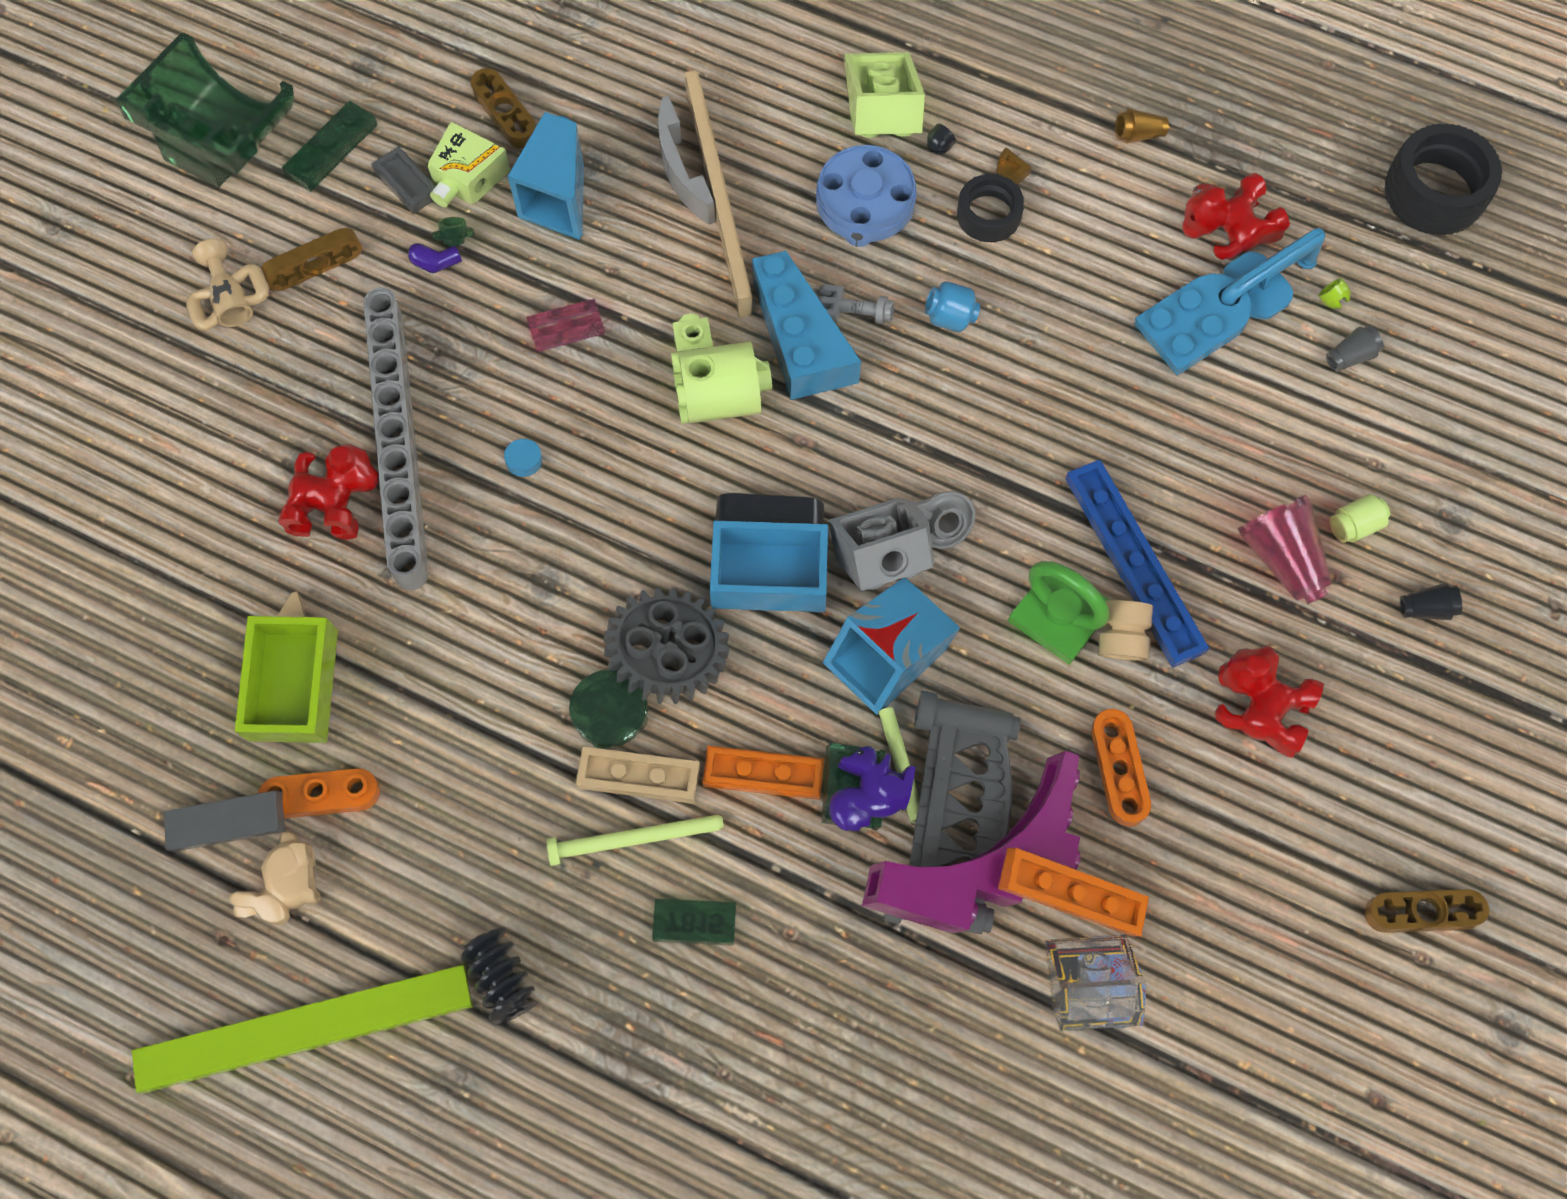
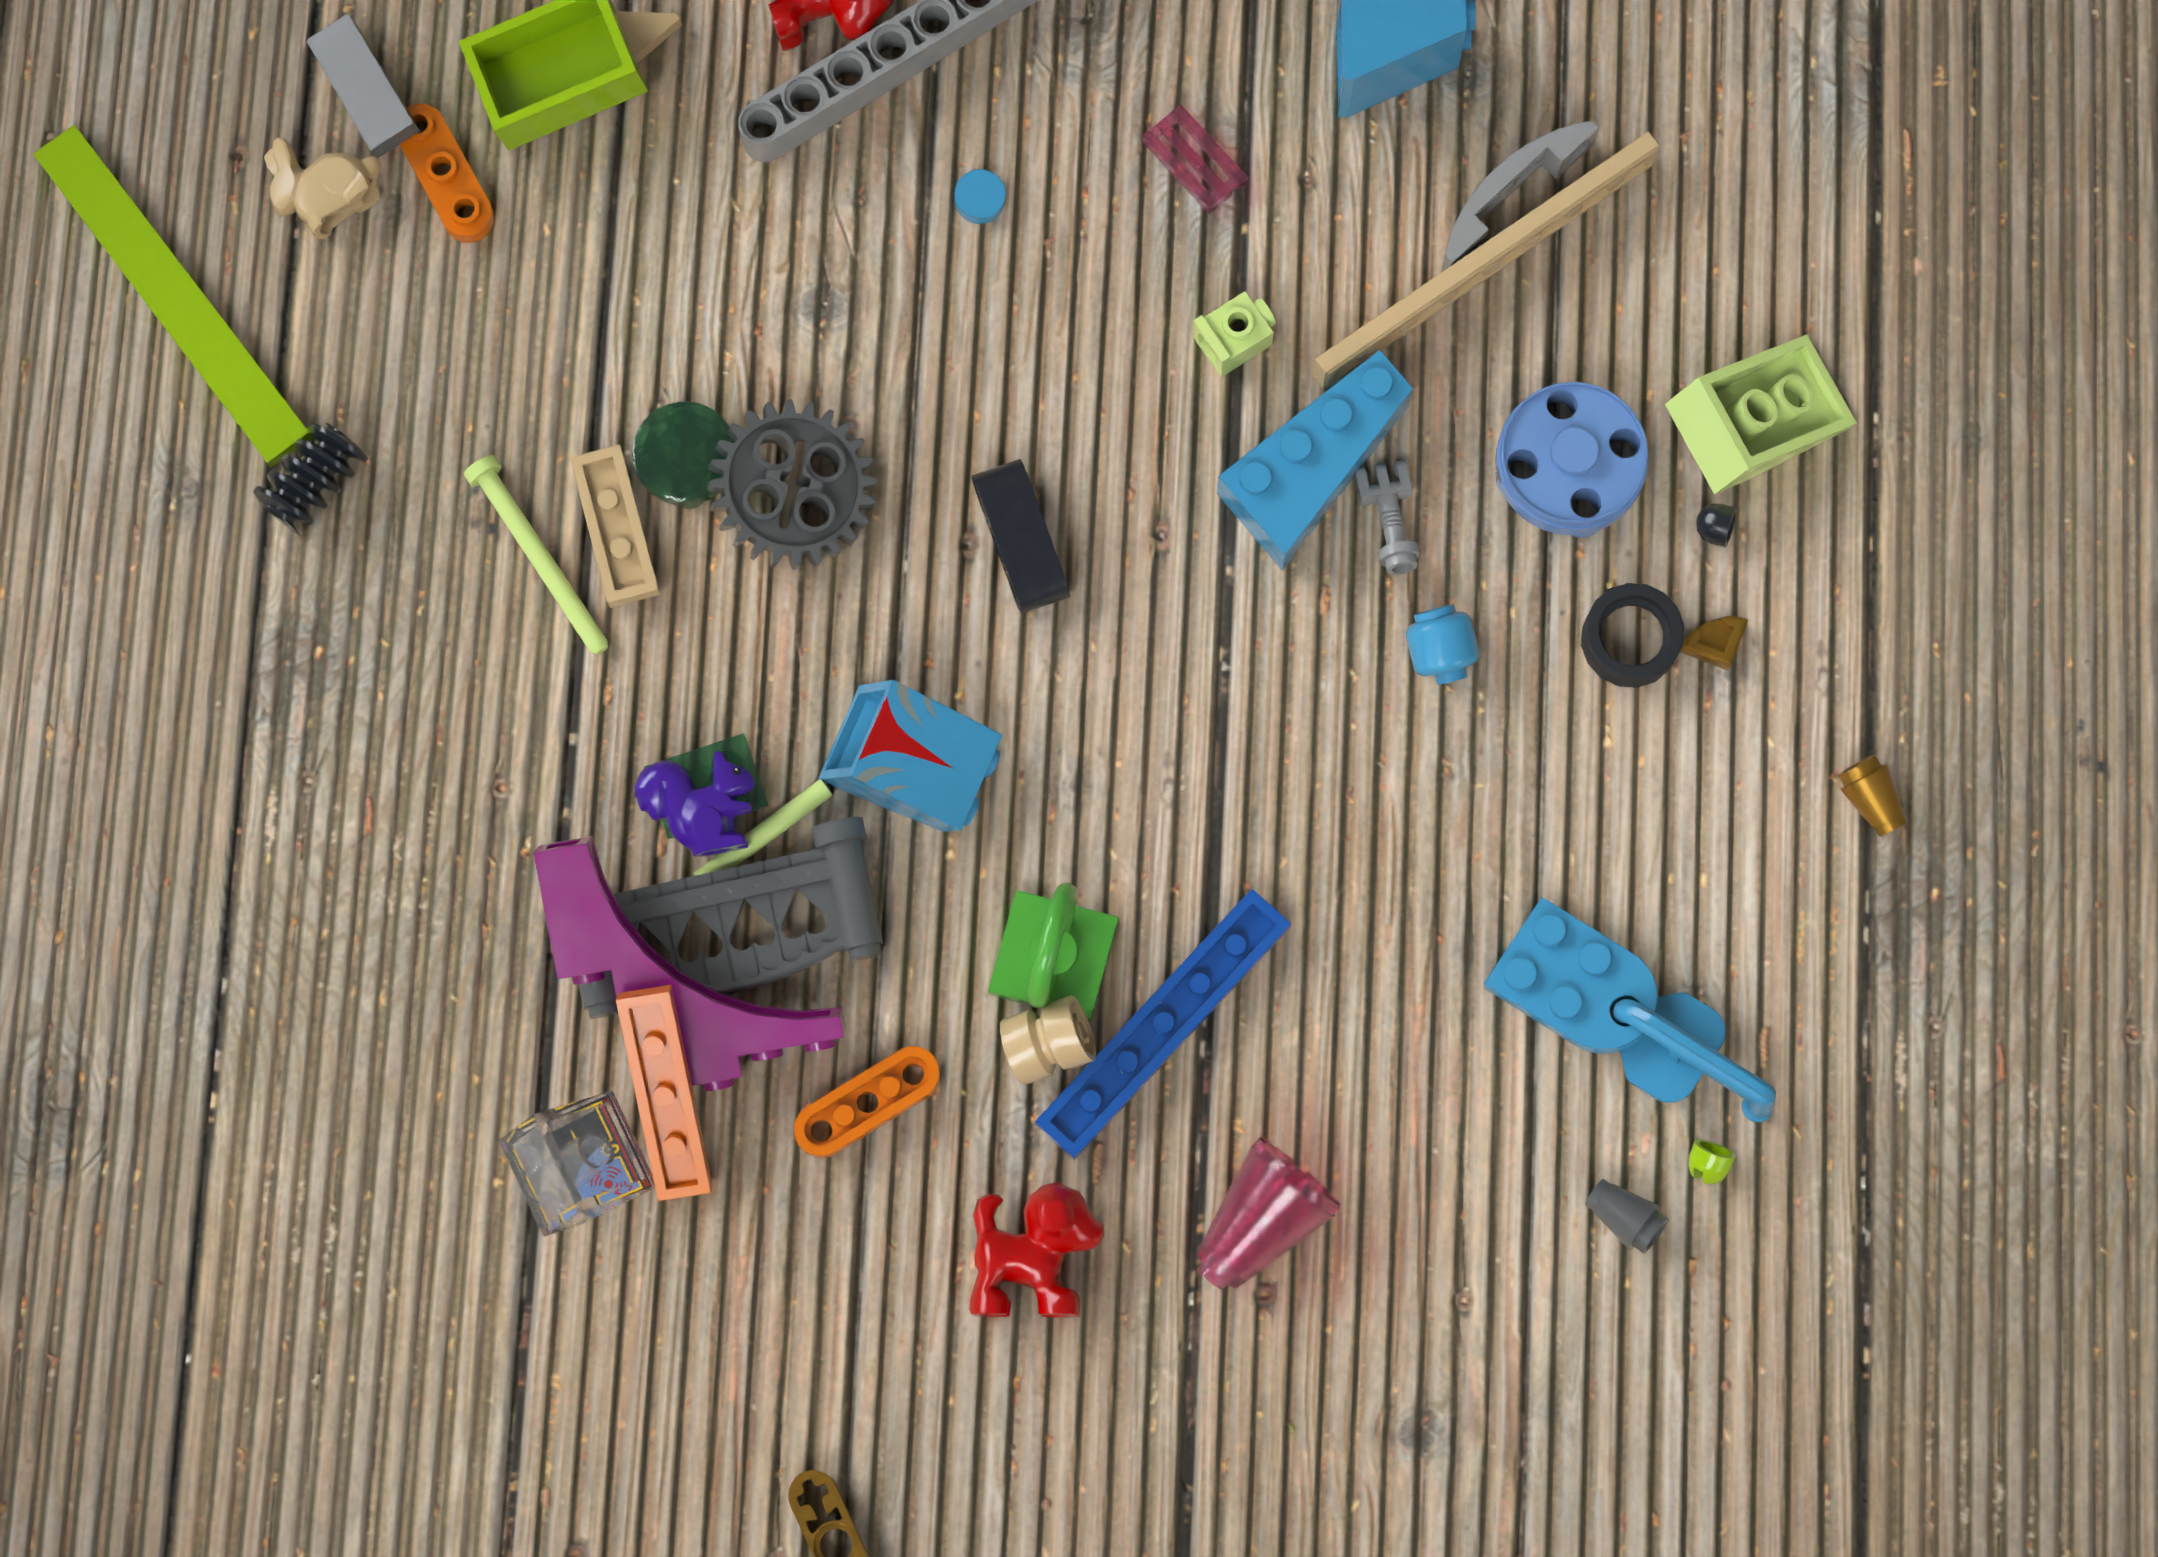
camera: 70 degrees right, 10 degrees up
(694, 922) = (466, 670): clear green tile -> none
(719, 382) = (1177, 388): yellowish green cylinder -> none
(763, 772) = (683, 672): orange tile -> none
(769, 566) = (945, 562): dark azure piece -> none
(898, 537) = (1048, 696): light grey brick -> none
(1211, 210) = (1759, 938): red animal -> none
(1360, 518) = (1355, 1299): yellowish green brick -> none
(1434, 602) = (1270, 1433): black cone -> none
(1456, 149) = (2036, 1233): black tyre -> none

